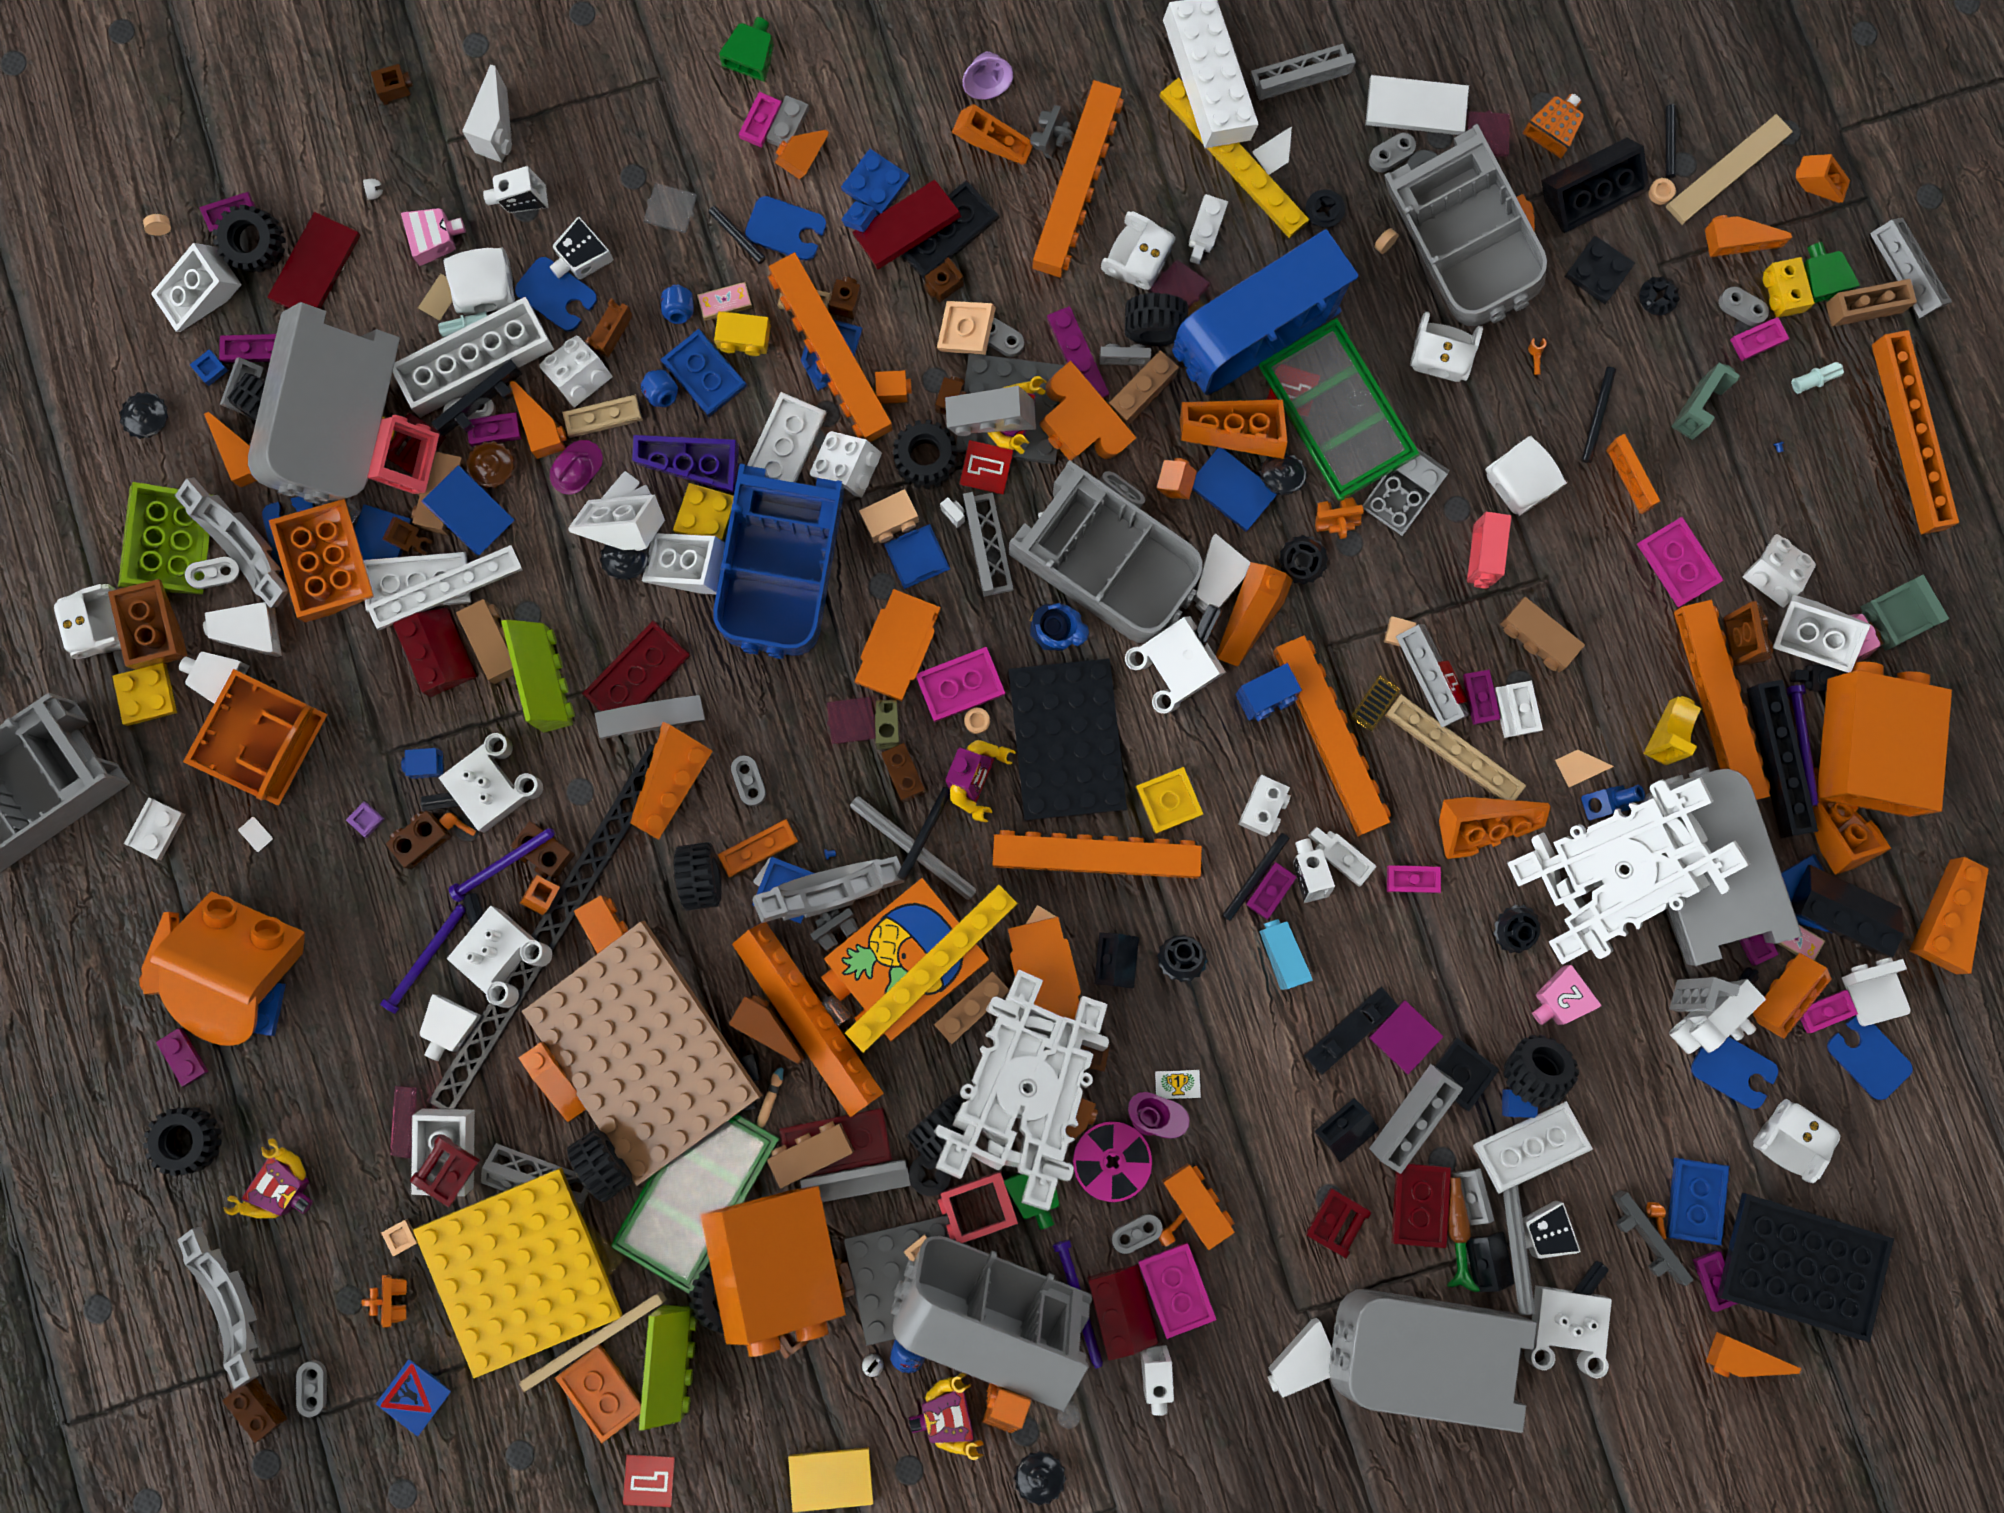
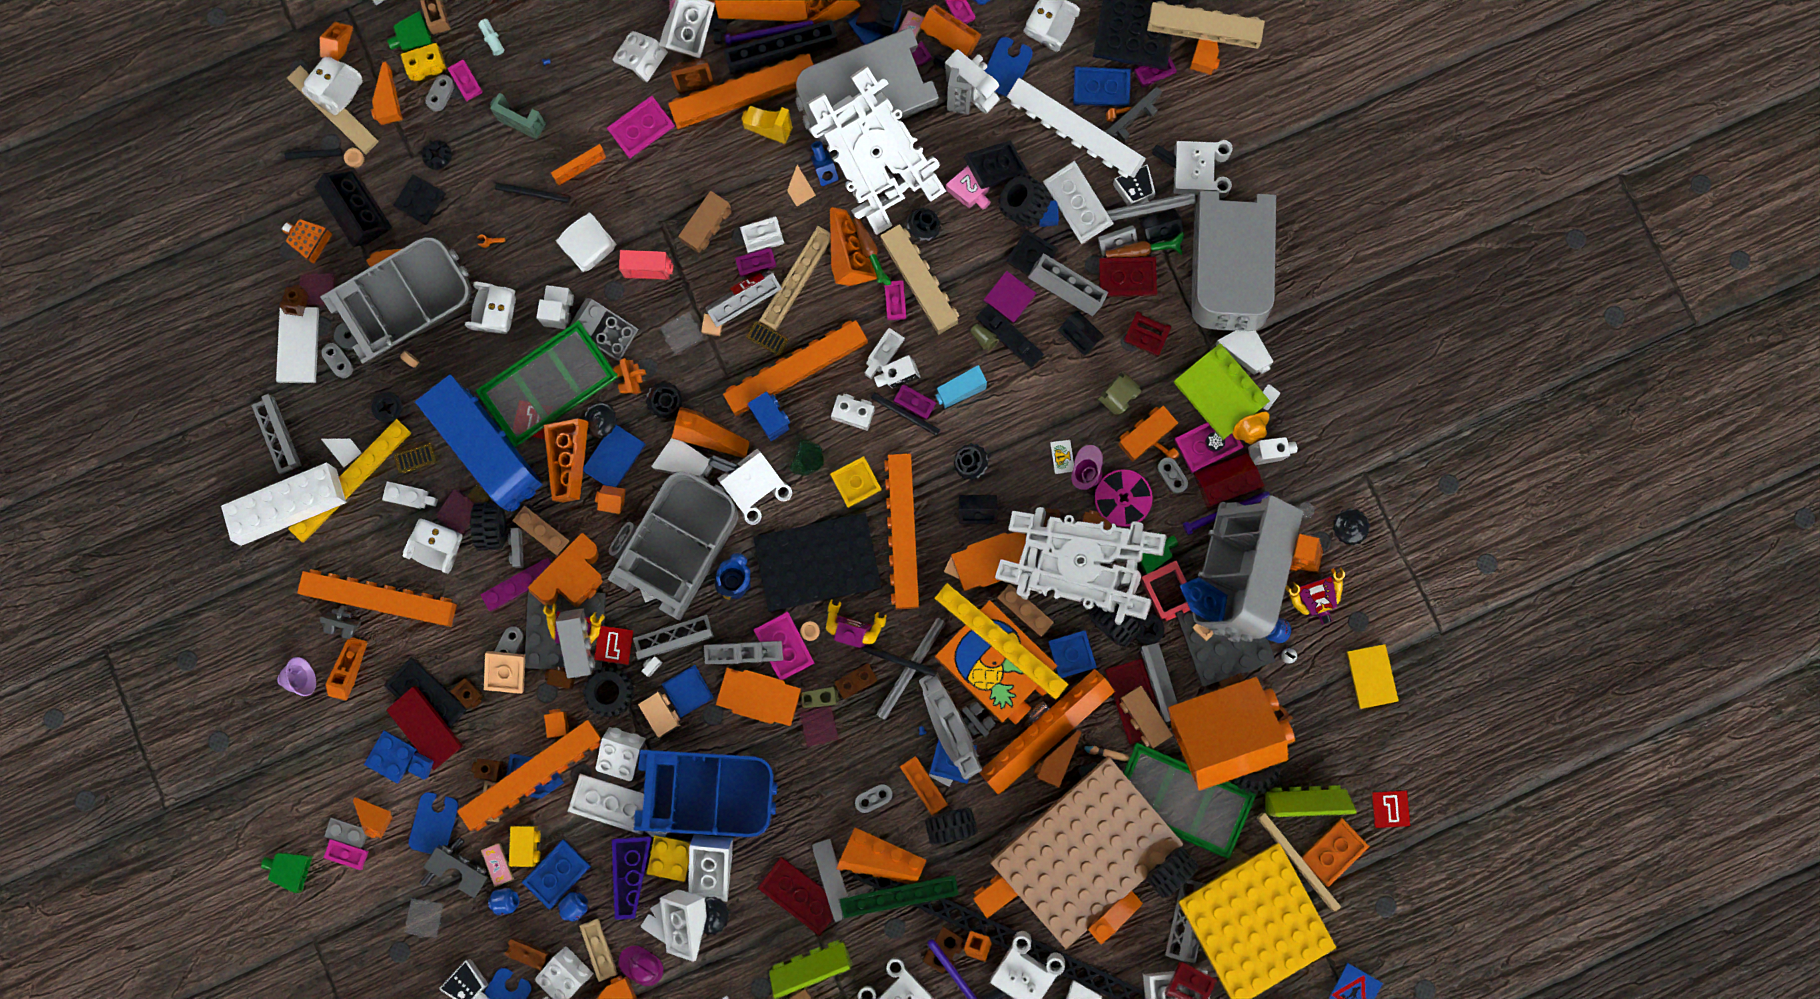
camera: 90 degrees left, 0 degrees up
(615, 798) = (898, 897): none -> dark green plate
(713, 267) = (472, 876): none -> dark grey arch
(907, 1065) = (1072, 654): none -> blue plate
(956, 1256) = (1205, 599): none -> blue tile
(957, 630) = (743, 652): none -> light grey slope
(1177, 1299) = (1214, 442): none -> tile
(1191, 1354) = (1252, 428): none -> light orange piece
(1207, 739) = (807, 458): none -> clear green hair
(1233, 1383) = (1272, 394): none -> white sticker
(1247, 1317) = (1221, 390): none -> lime slope
(1254, 239) = (415, 458): none -> clear yellow tile
(1257, 1173) = (1119, 393): none -> olive brick
(1352, 995) = (984, 337): none -> olive cone
(1392, 591) = (681, 333): none -> clear piece
(1440, 429) = (555, 307): none -> white brick
(1441, 914) = (919, 279): none -> tan brick
(1475, 102) = (294, 301): none -> reddish brown brick
(1484, 851) = (870, 251): none -> dark orange piece
(1595, 1036) = (995, 164): none -> black plate
(1639, 1157) = (1075, 127): none -> white brick
(1763, 168) = (332, 85): none -> white piece
(1780, 1363) = (1206, 25): none -> tan brick

